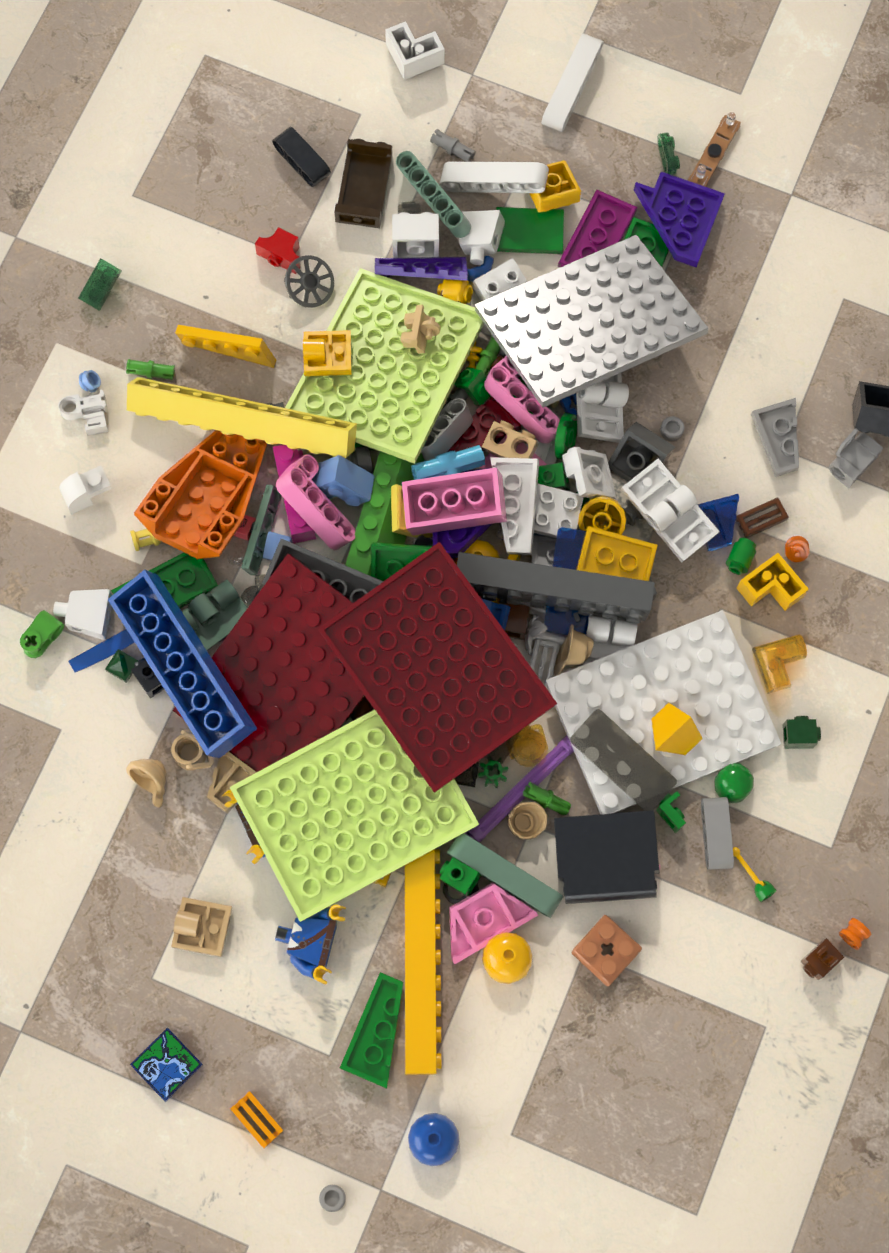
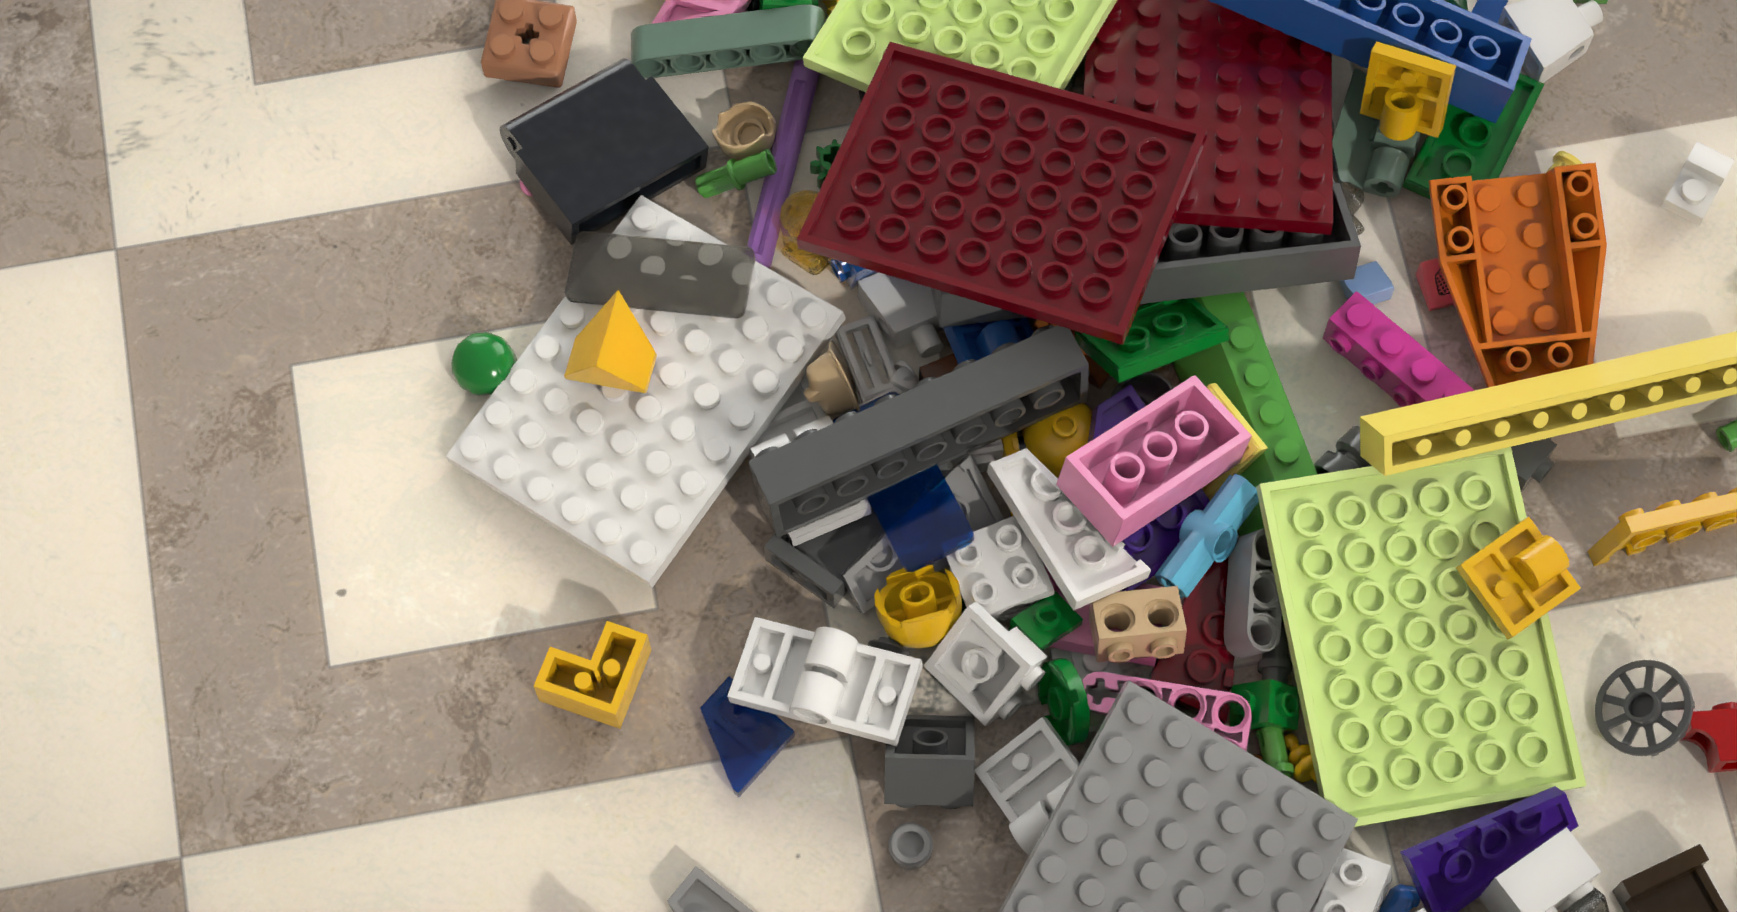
camera: 150 degrees right, 5 degrees down
(186, 603) = (1406, 92): none -> yellow plate
(259, 530) = (1409, 289): sand green piece -> none
(312, 504) = (1350, 344): bright pink beam -> none
(344, 480) = (1334, 404): medium blue brick -> none
(422, 328) = (1408, 711): tan hips -> none
(456, 290) = (1400, 835): yellow head -> none
(616, 555) = (856, 548): yellow tile -> none
(672, 816) = (546, 259): green bracket -> none
(717, 833) = (467, 276): light grey beam -> none
(741, 556) = (672, 698): green brick -> none
(744, 526) = (659, 820): reddish brown tile -> none
(762, 889) = (357, 243): hinge -> none
(773, 656) = (531, 573): clear yellow brick -> none
(797, 549) = (592, 763): orange wheel -> none
(801, 733) = (424, 485): dark green brick -> none
(821, 959) = (221, 199): reddish brown brick -> none
(855, 933) = (192, 260): orange wheel -> none

